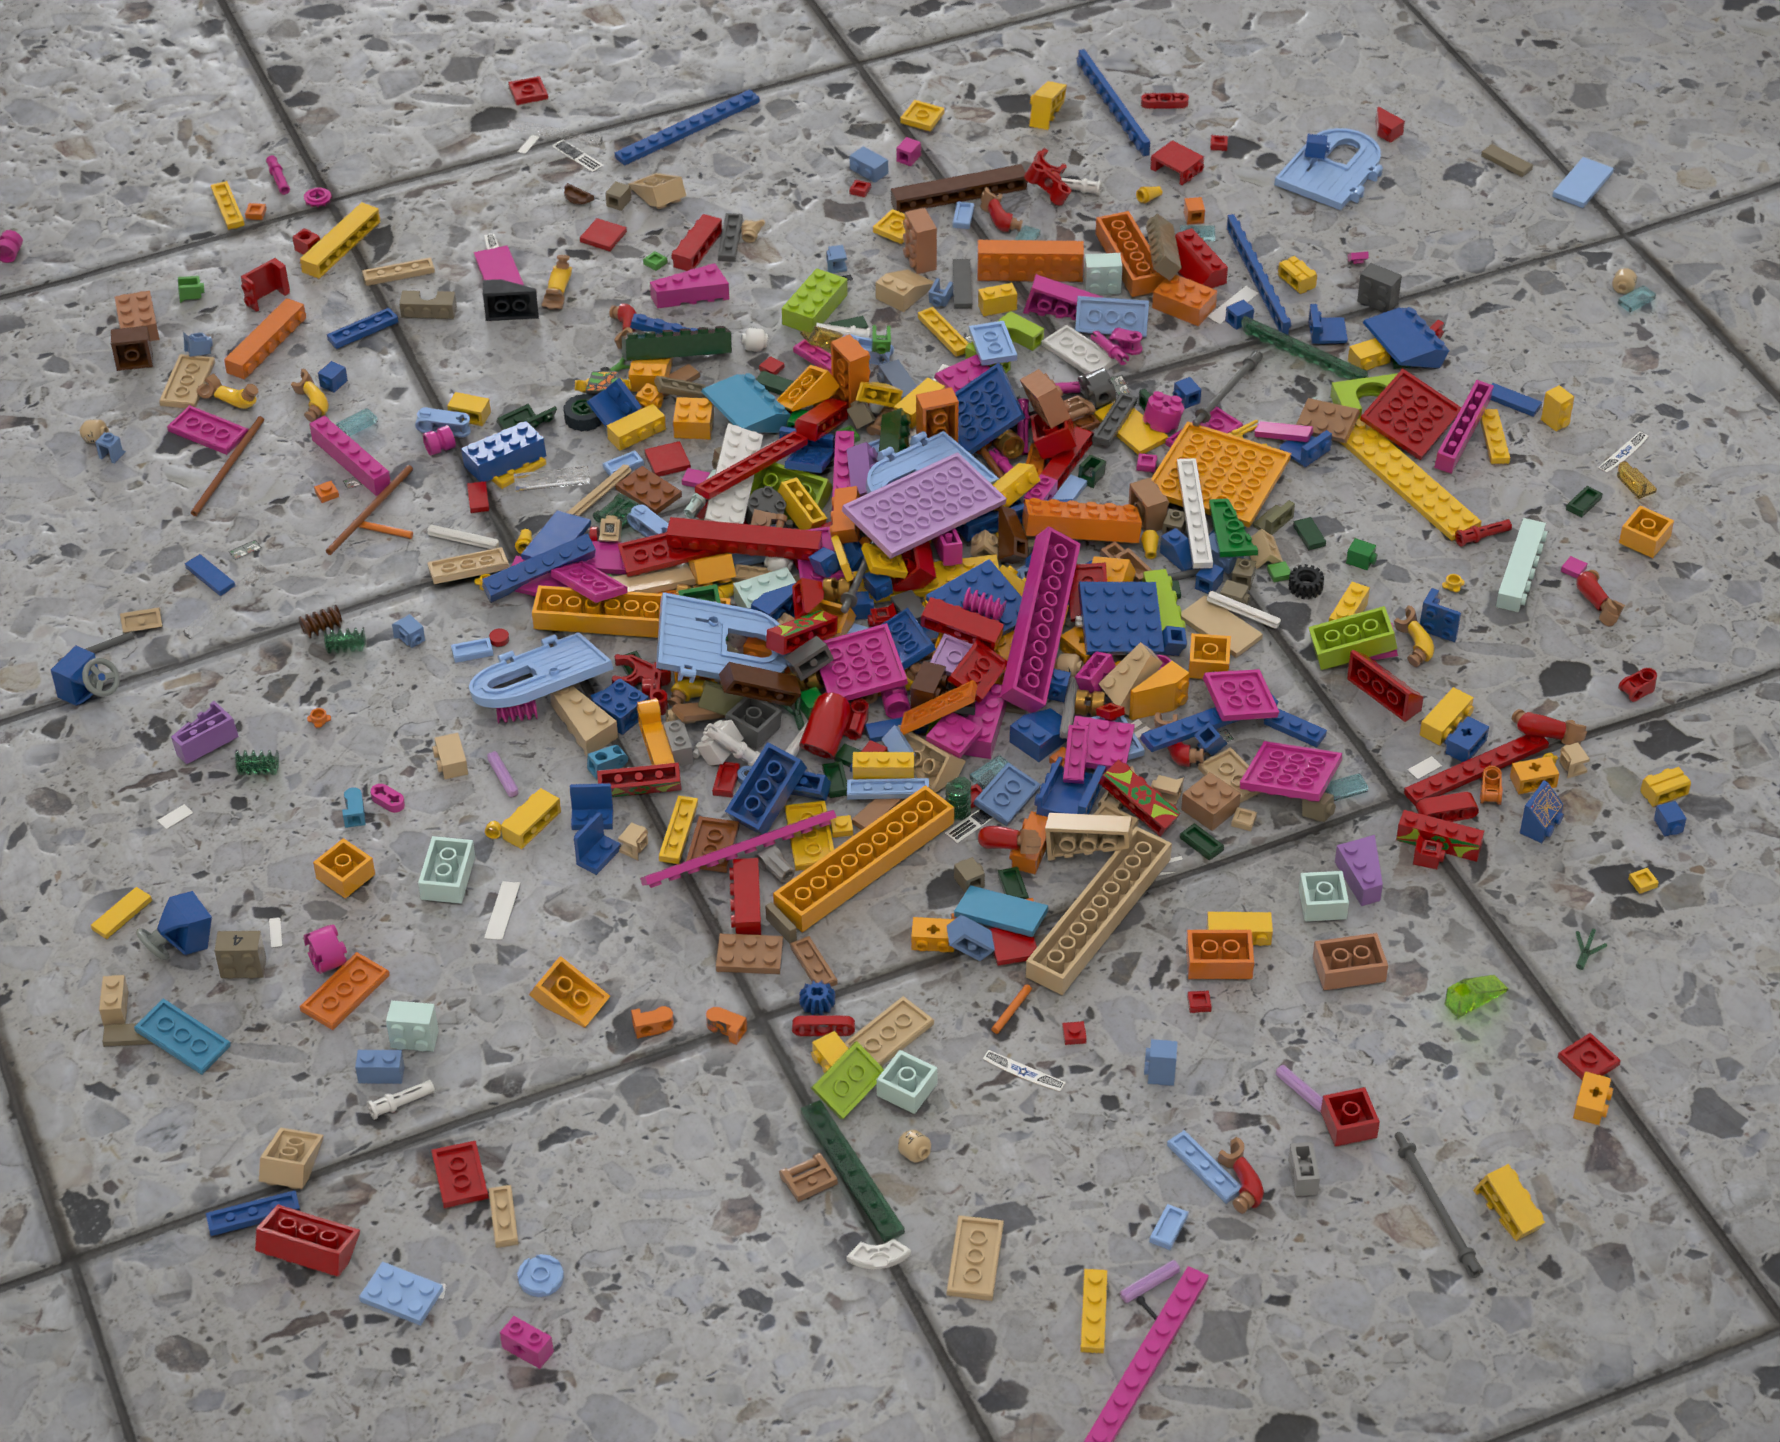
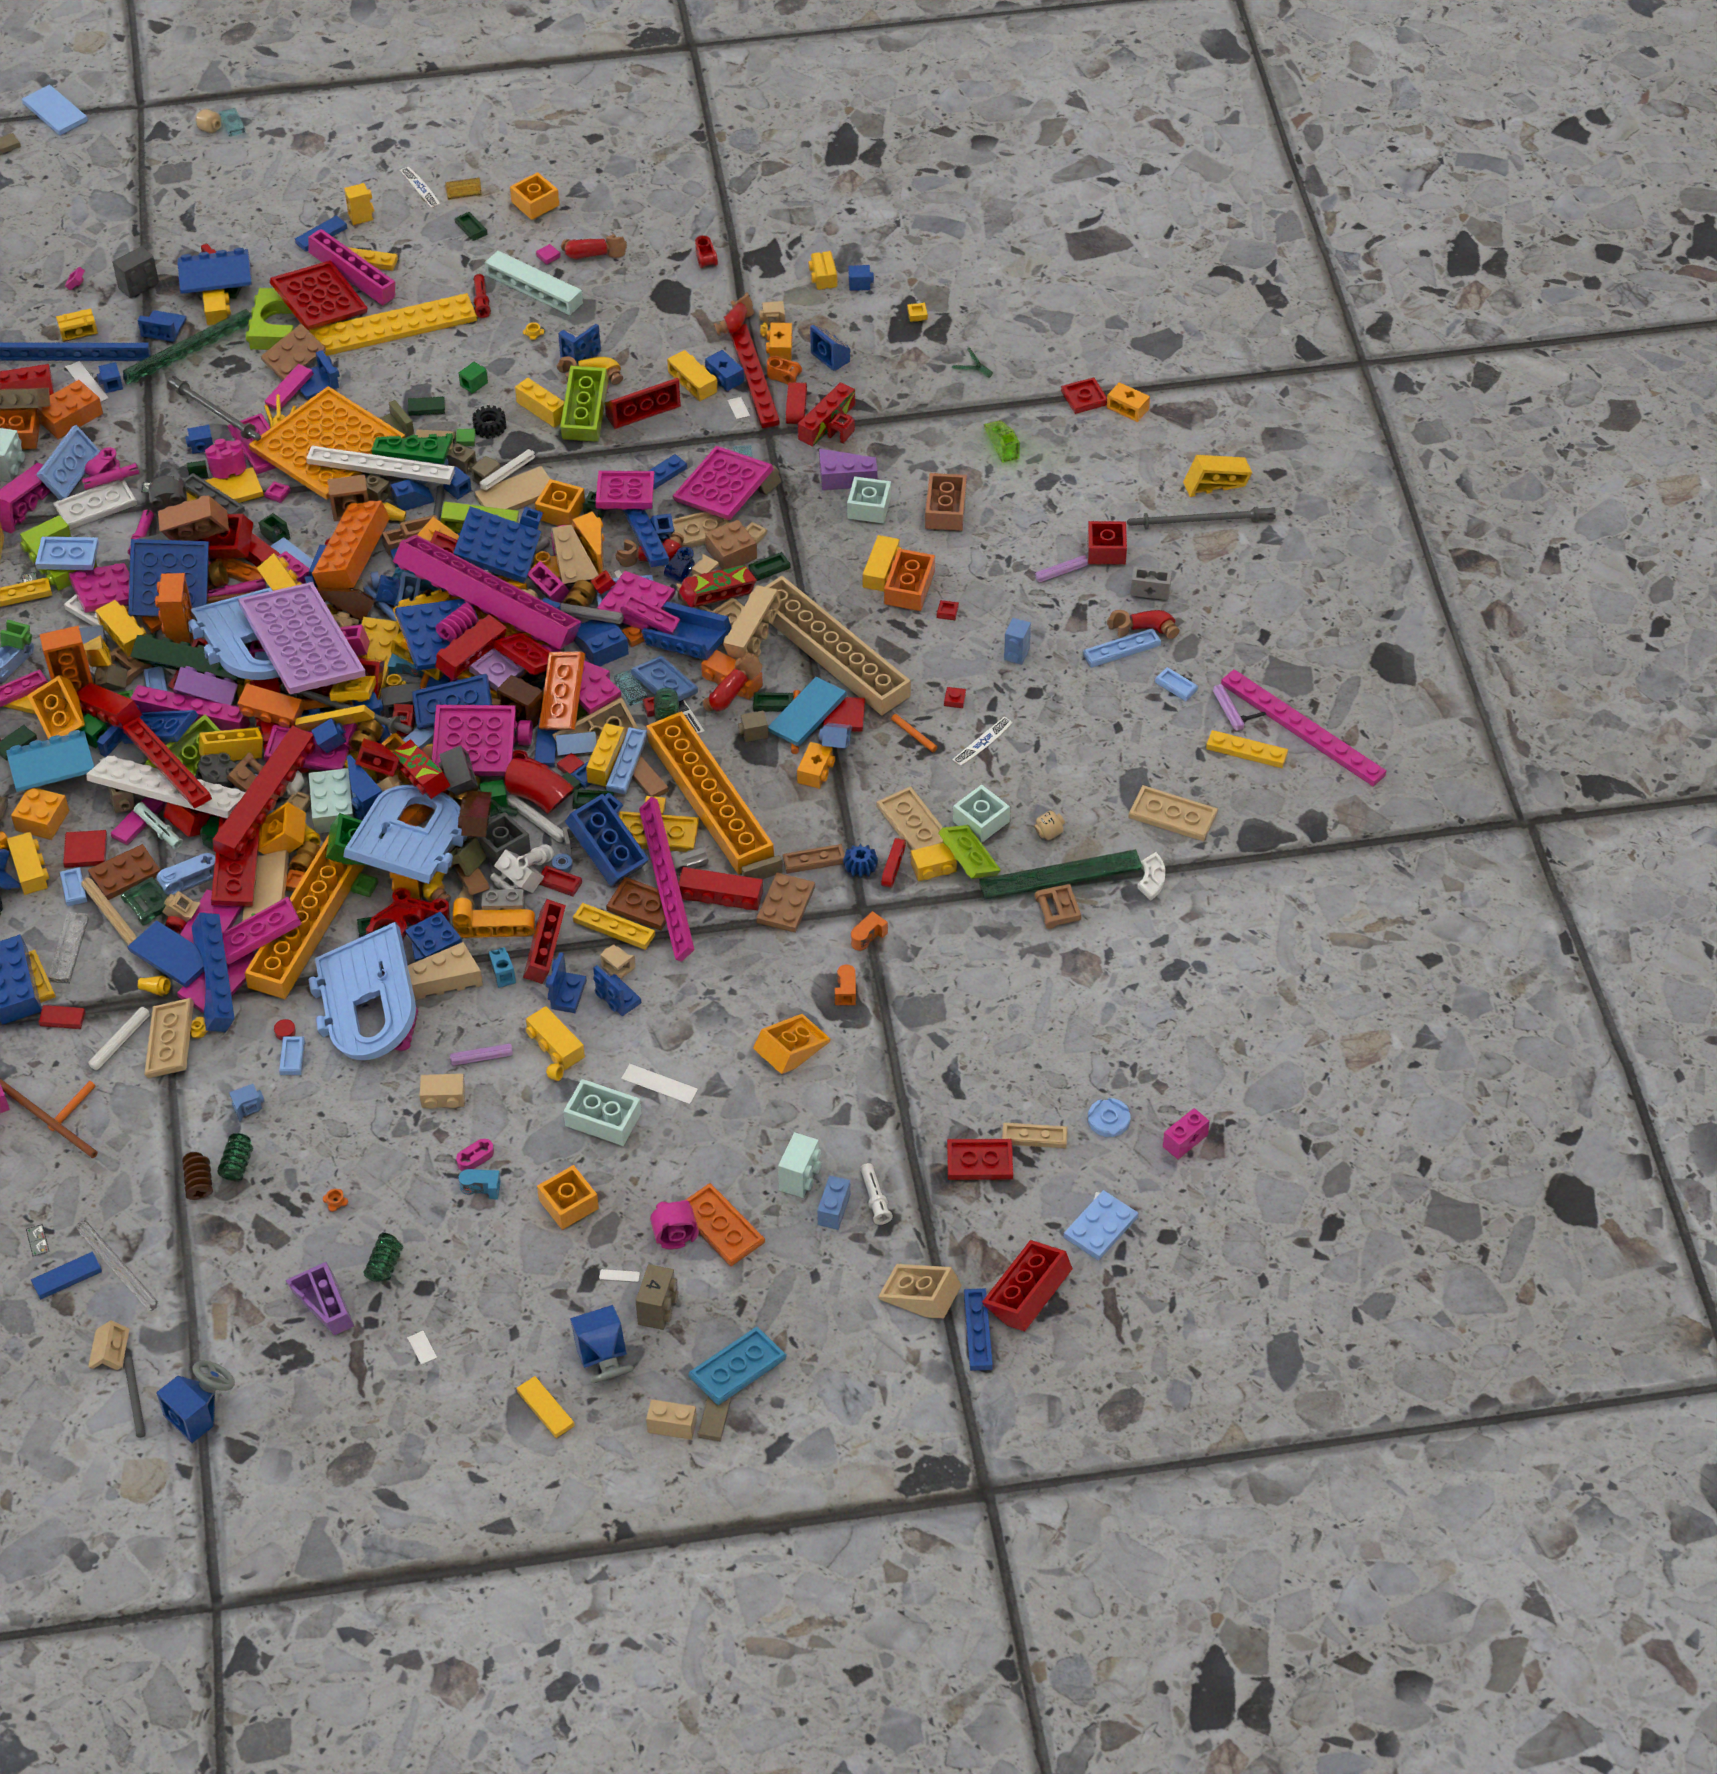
camera: 75 degrees left, 5 degrees up
(1168, 767) = (680, 564): none -> clear blue piece

